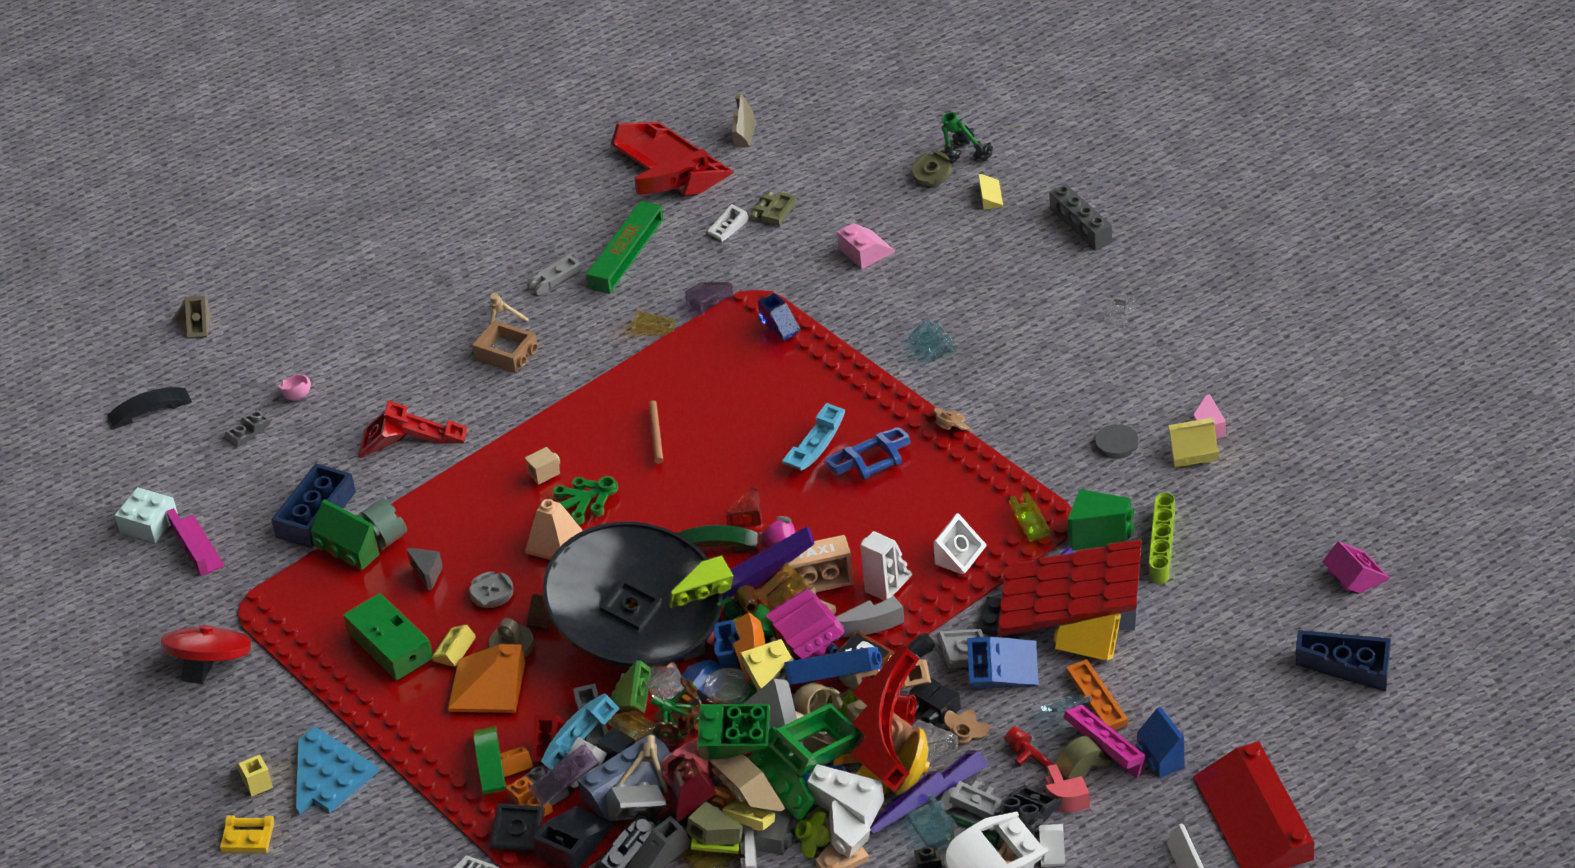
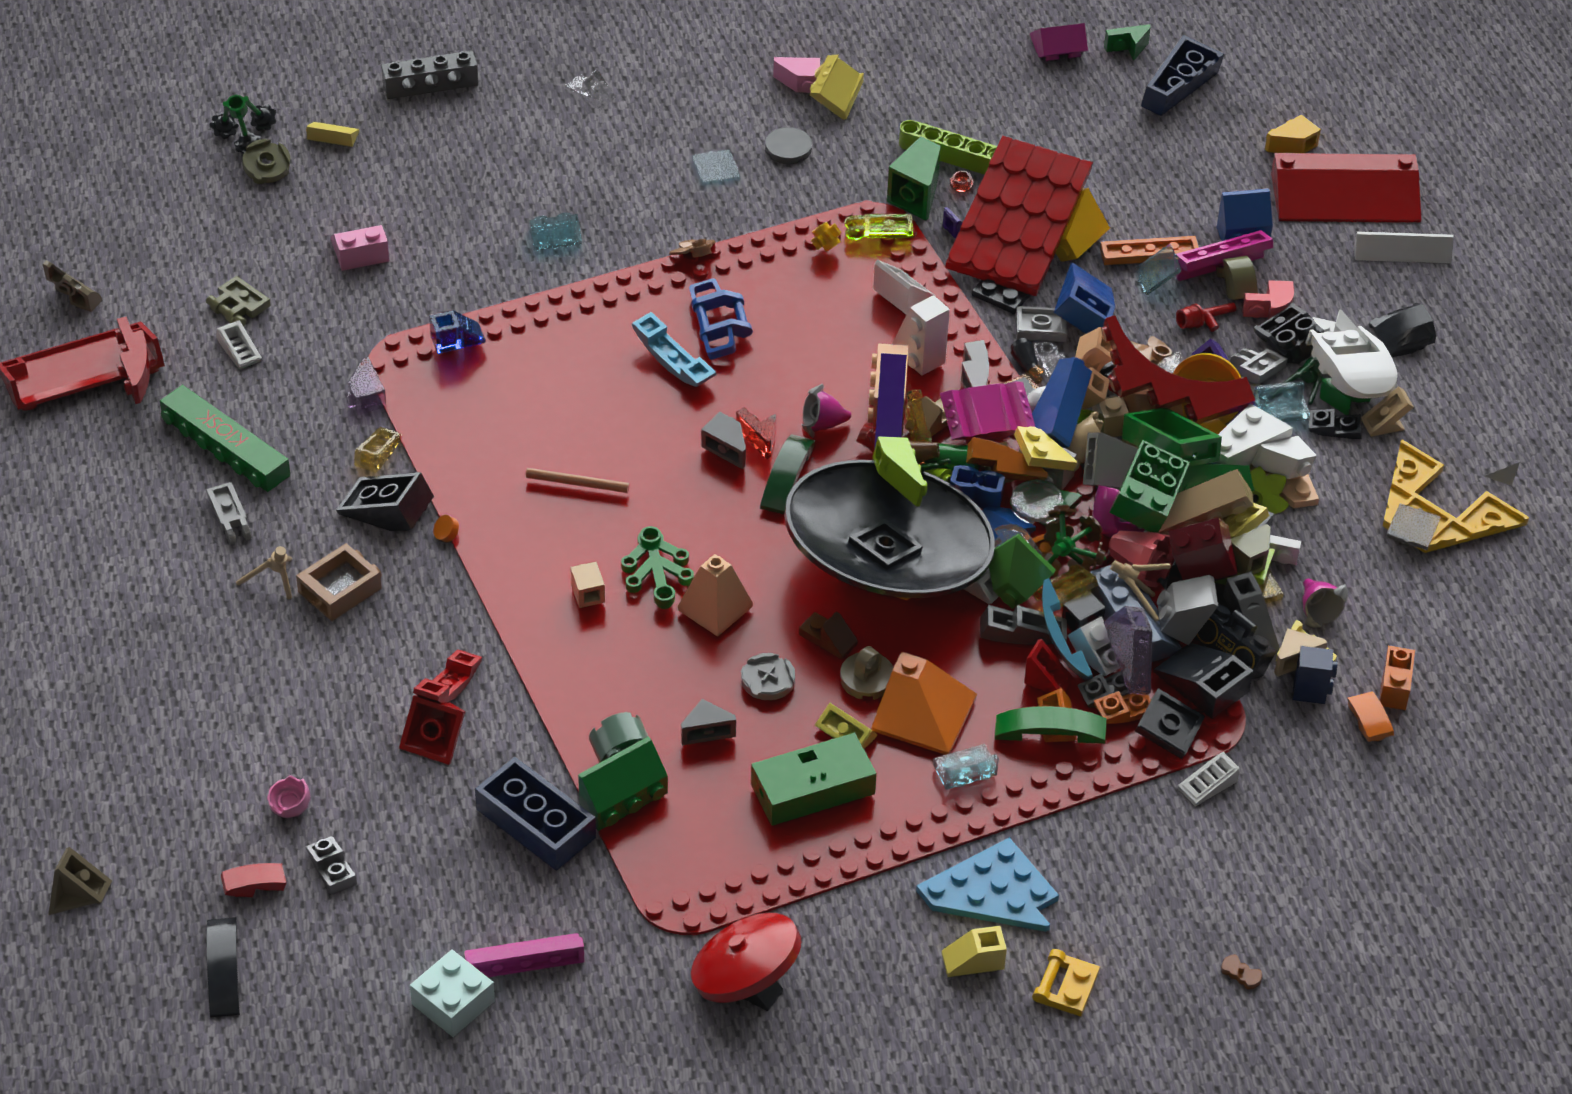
camera: 80 degrees left, 5 degrees up
(221, 395) = (245, 879): none -> slope
(435, 721) = (966, 766): none -> clear light blue bracket
(580, 382) = (446, 528): none -> orange tile
(594, 345) = (388, 500): none -> black slope
(726, 494) = (725, 439): none -> slope
(993, 485) = (826, 236): none -> yellow gear
(1067, 408) = (716, 167): none -> clear light blue piece
(1309, 758) = (1294, 136): none -> yellow slope
(1384, 615) = (1131, 38): none -> green slope

